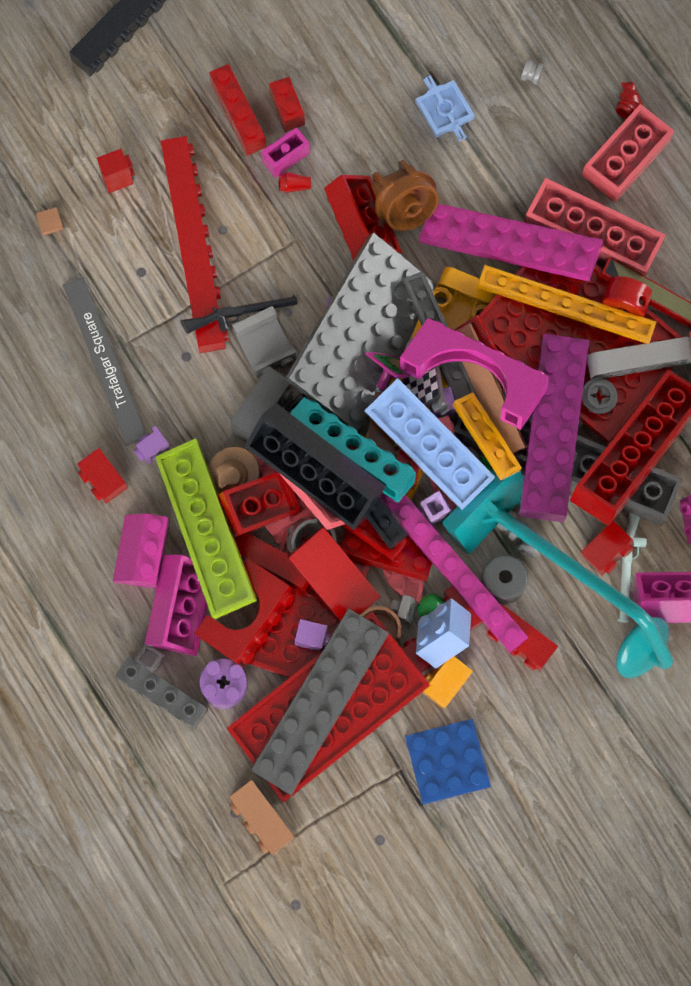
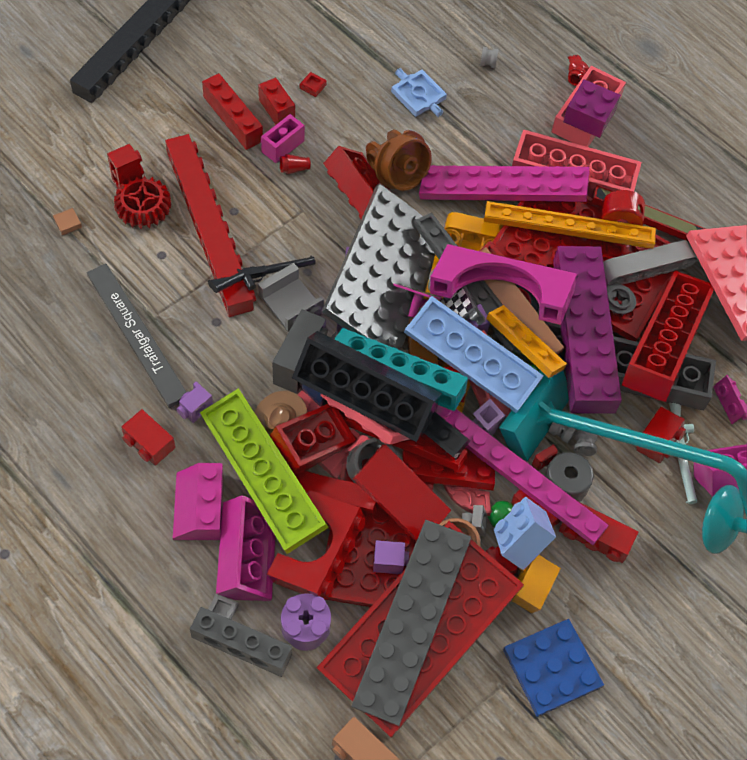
camera: 15 degrees left, 15 degrees down
(112, 204) = (151, 194): none -> red gear
(331, 82) = (313, 84): none -> red tile
(486, 554) = (544, 457): none -> red tile
(624, 165) = (591, 108): none -> magenta brick

